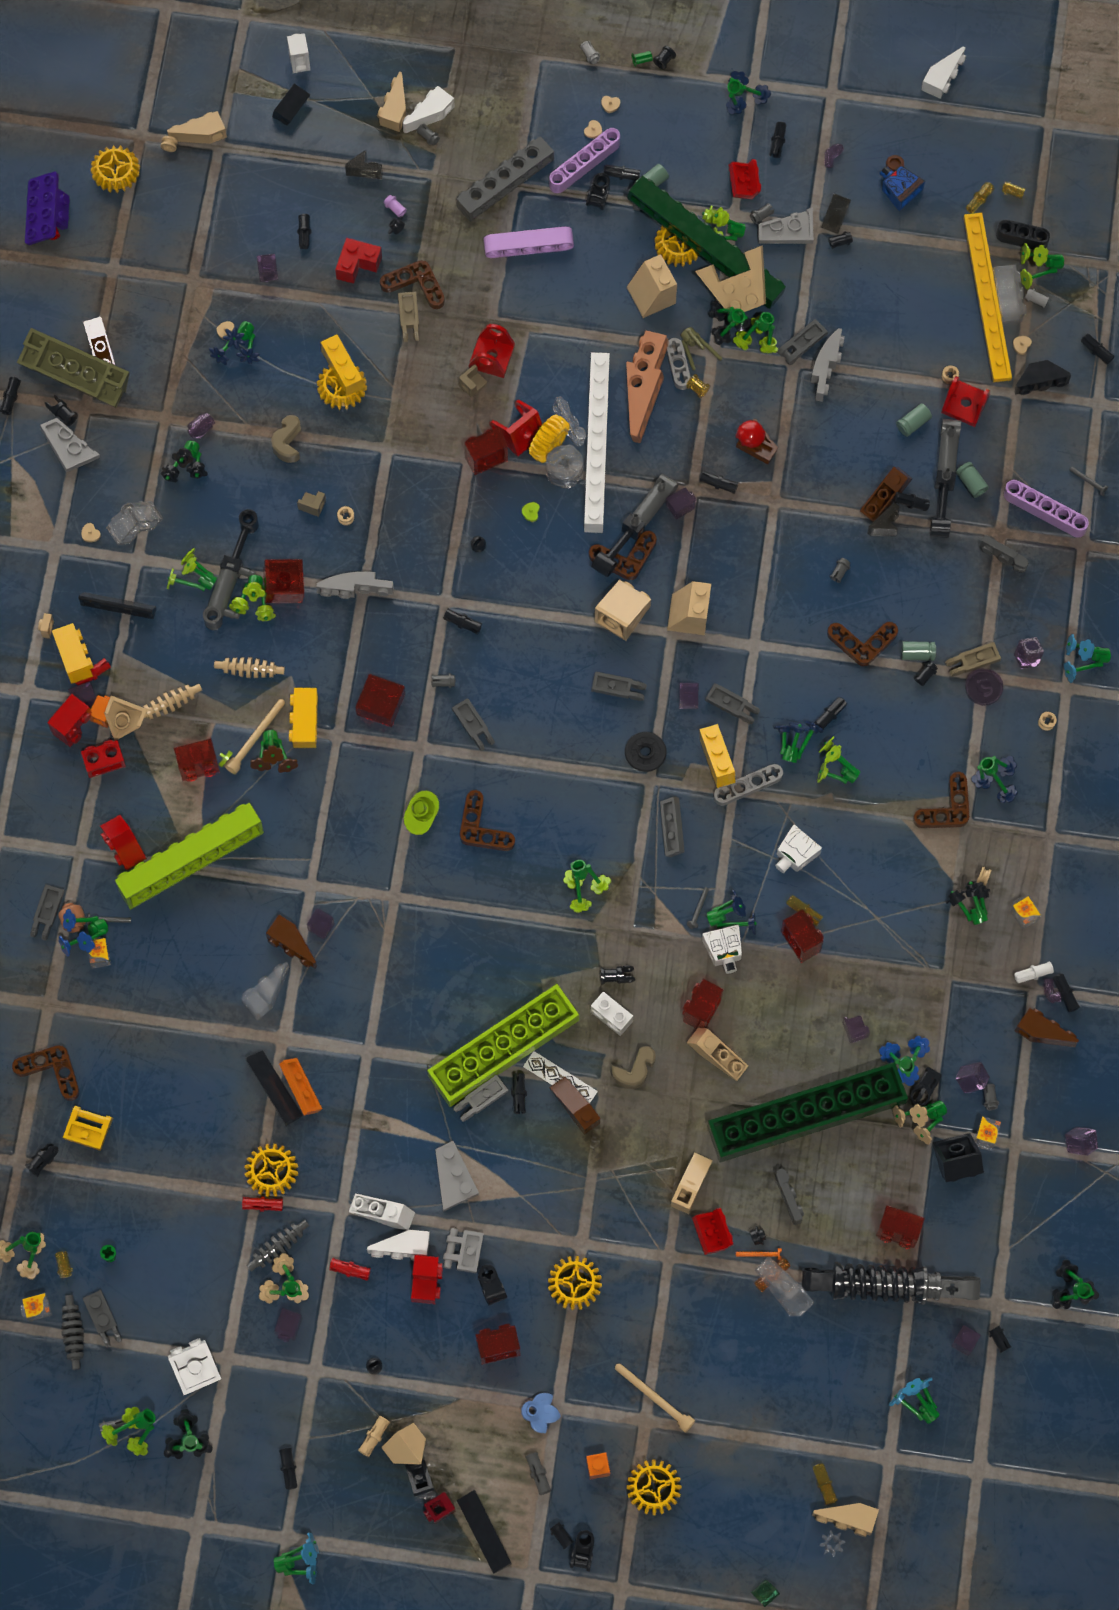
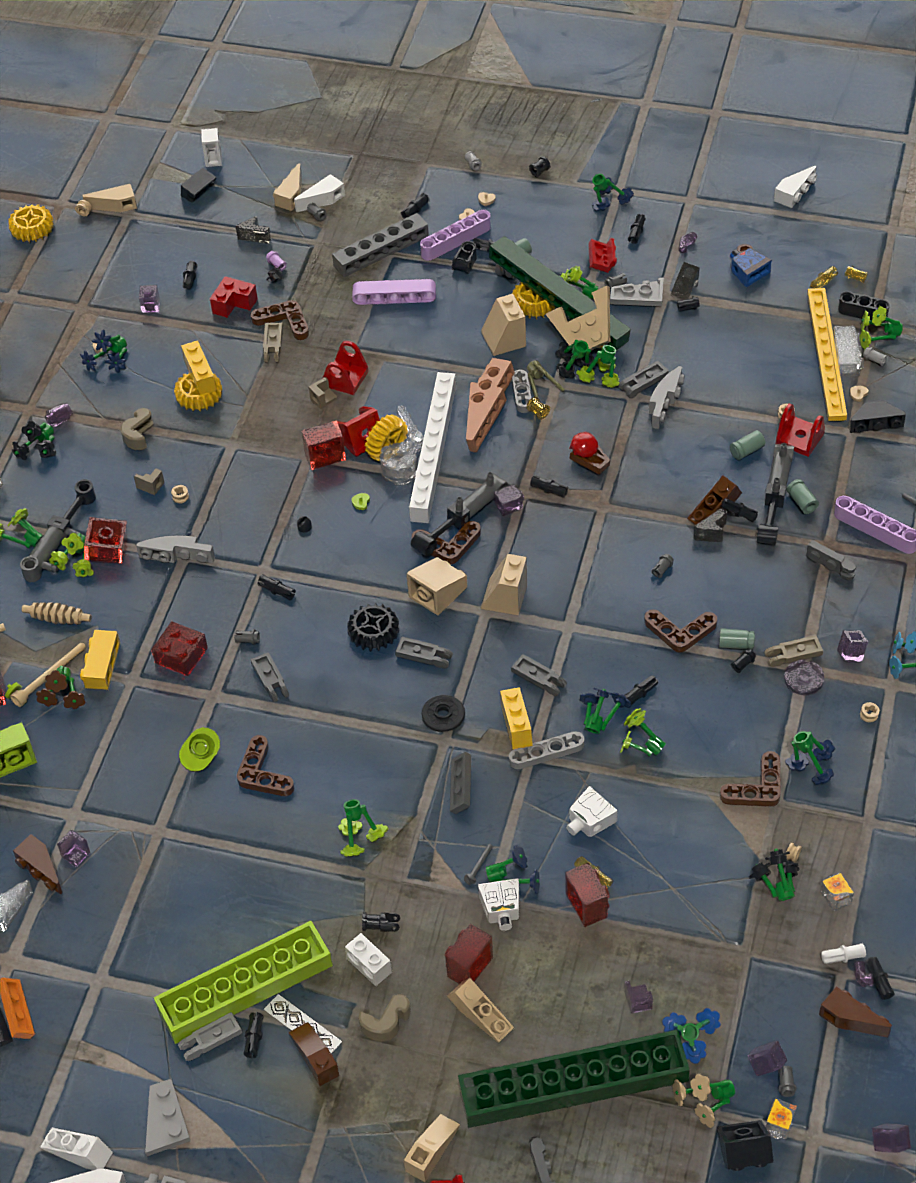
camera: 10 degrees right, 20 degrees down
(534, 120) = (415, 206): none -> black pin
(573, 674) = (373, 632): none -> black gear
(642, 57) = (519, 166): green piece -> none
(688, 695) = (494, 663): clear purple panel -> none
(927, 1085) = (715, 1062): black piece -> none

